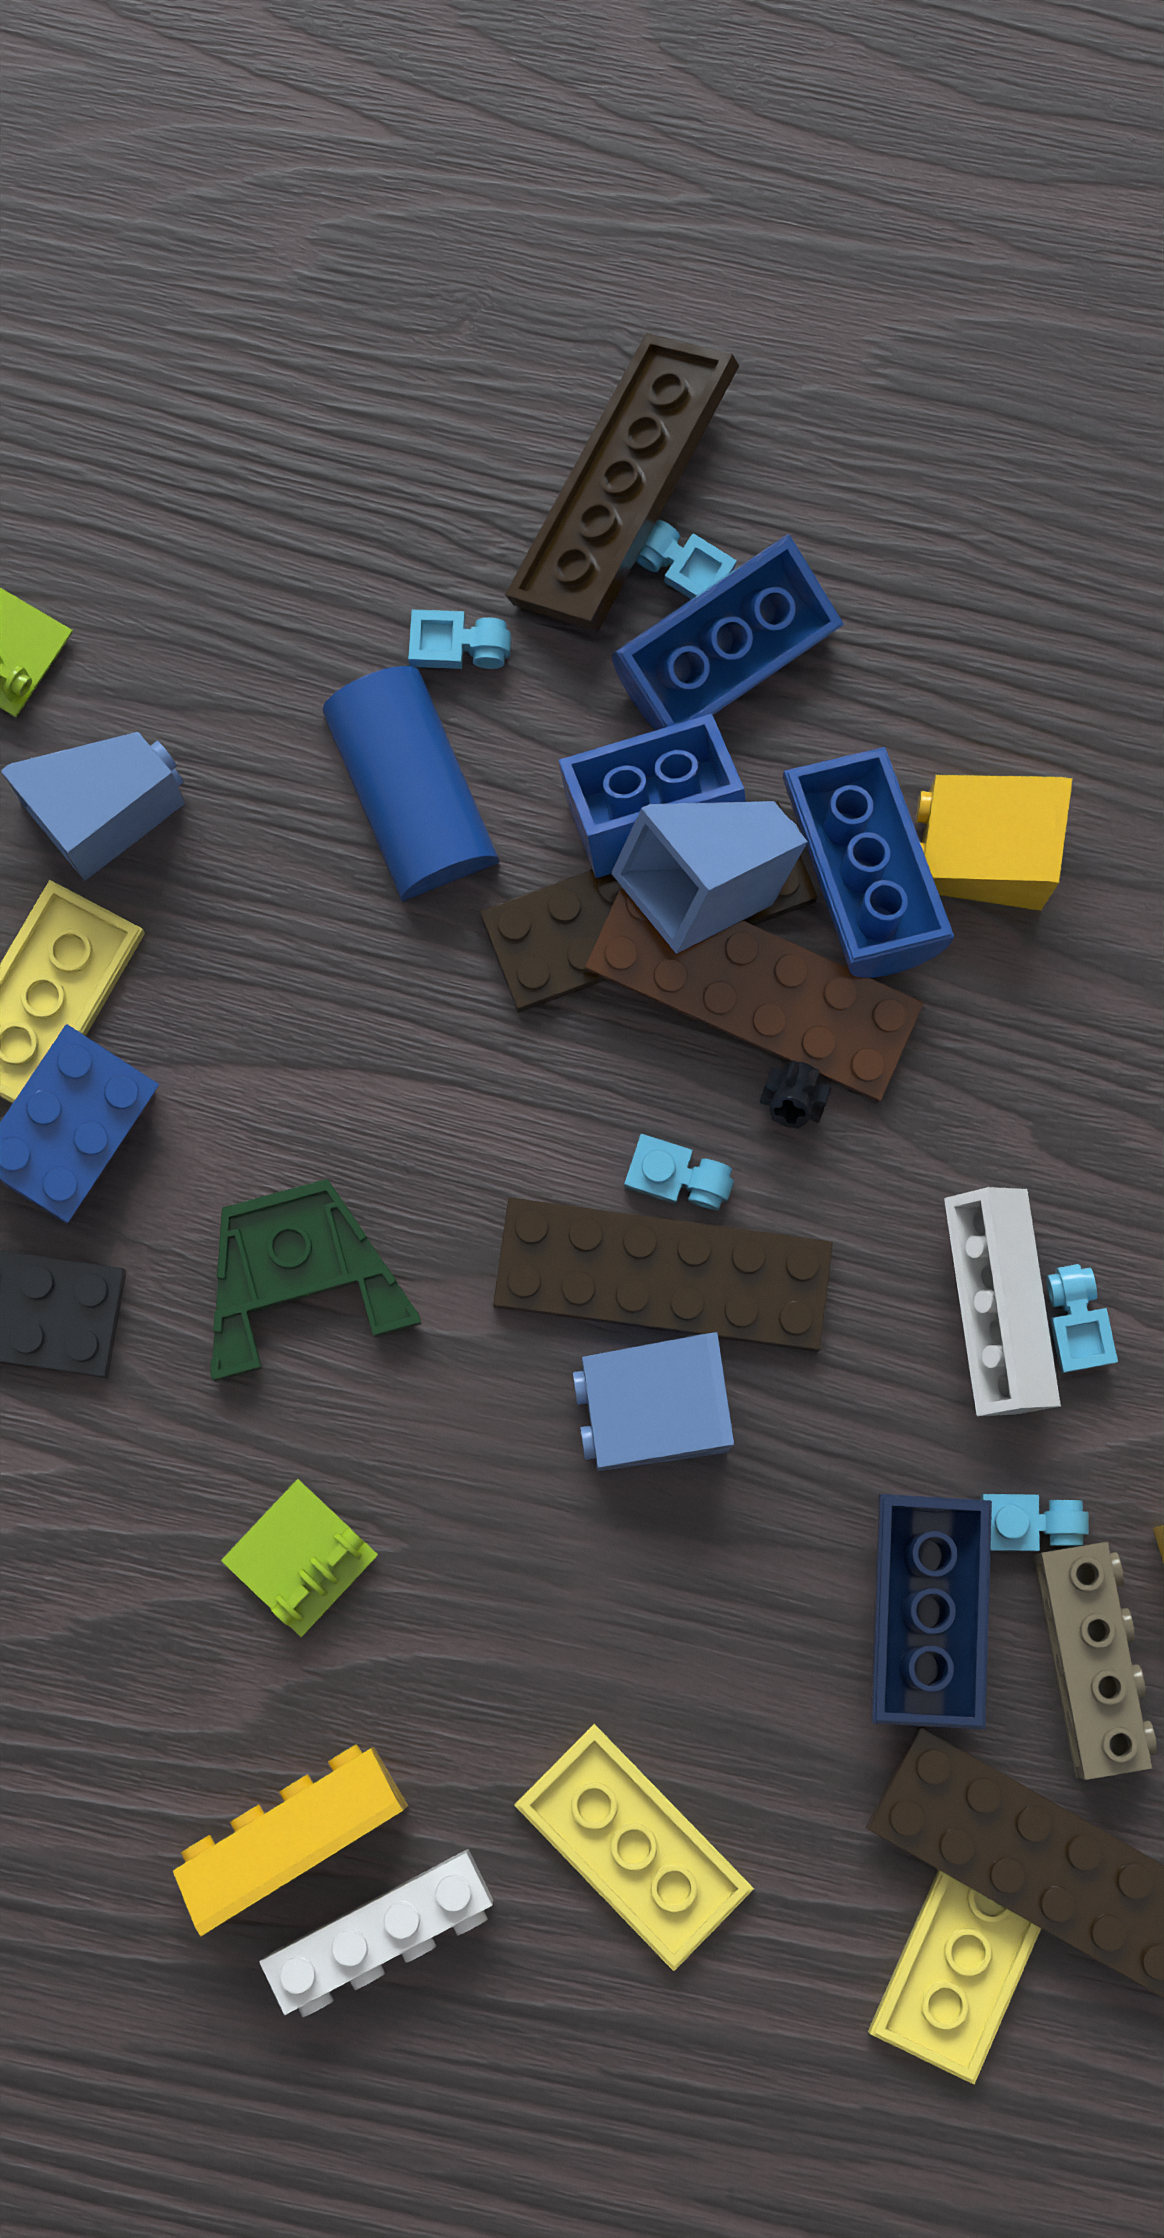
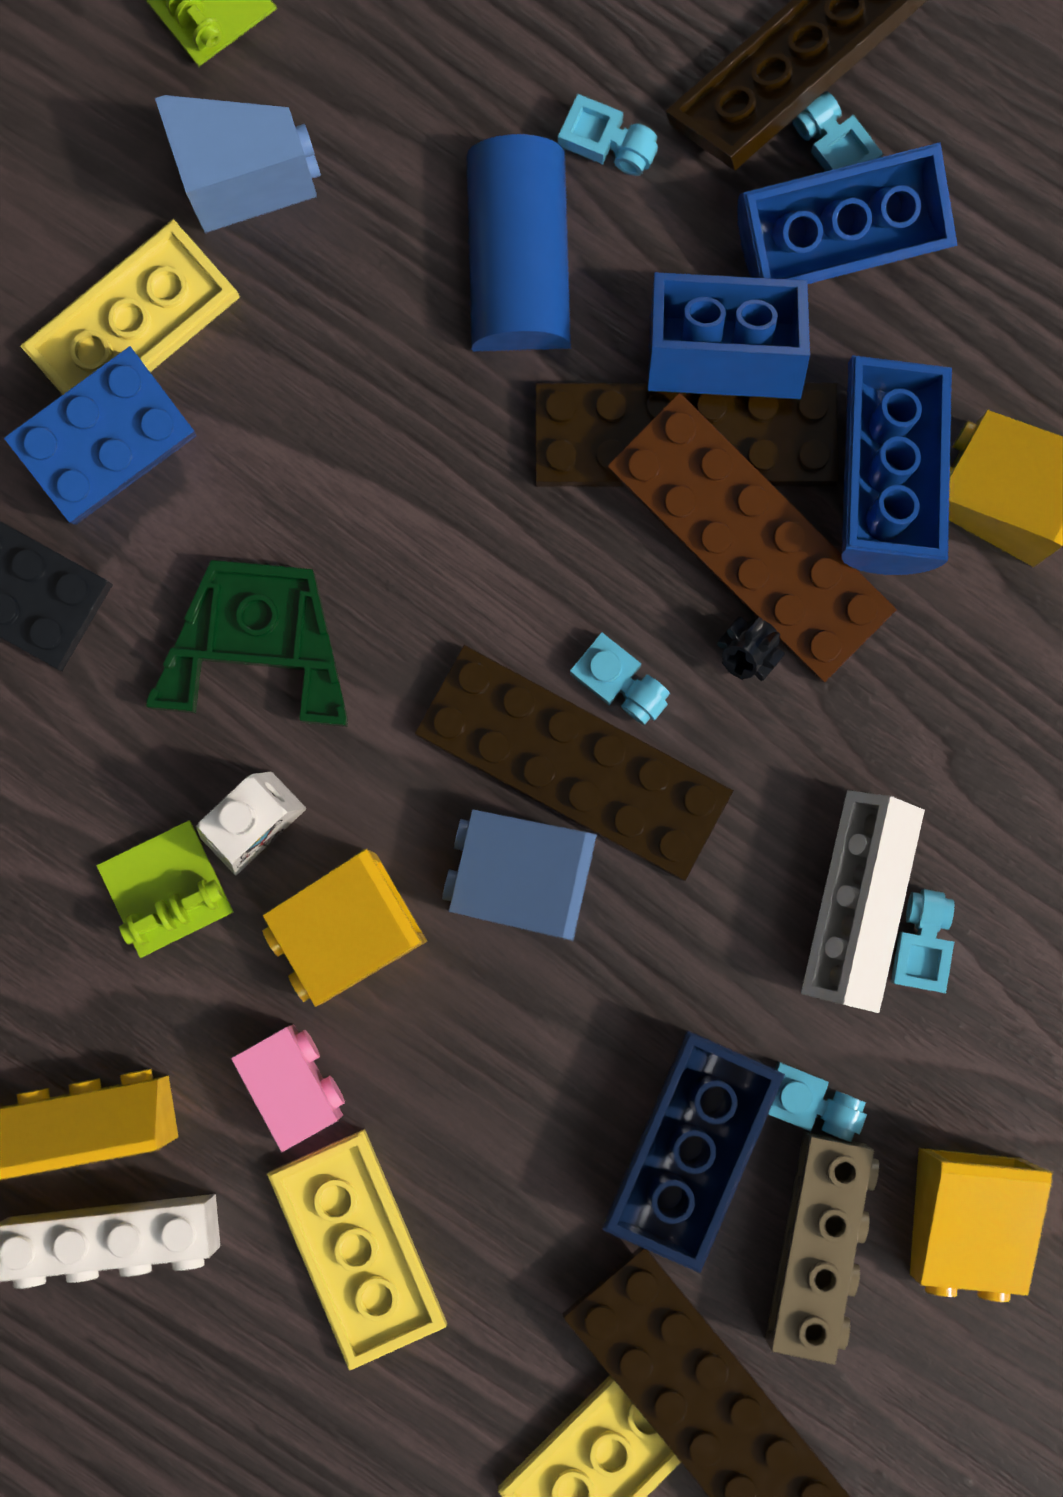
camera: 25 degrees right, 5 degrees up
(360, 1456) = (249, 819): none -> white torso
(498, 1526) = (342, 928): none -> yellow slope
(503, 1706) = (289, 1086): none -> bright pink brick
(706, 865) = (749, 411): medium blue slope -> none

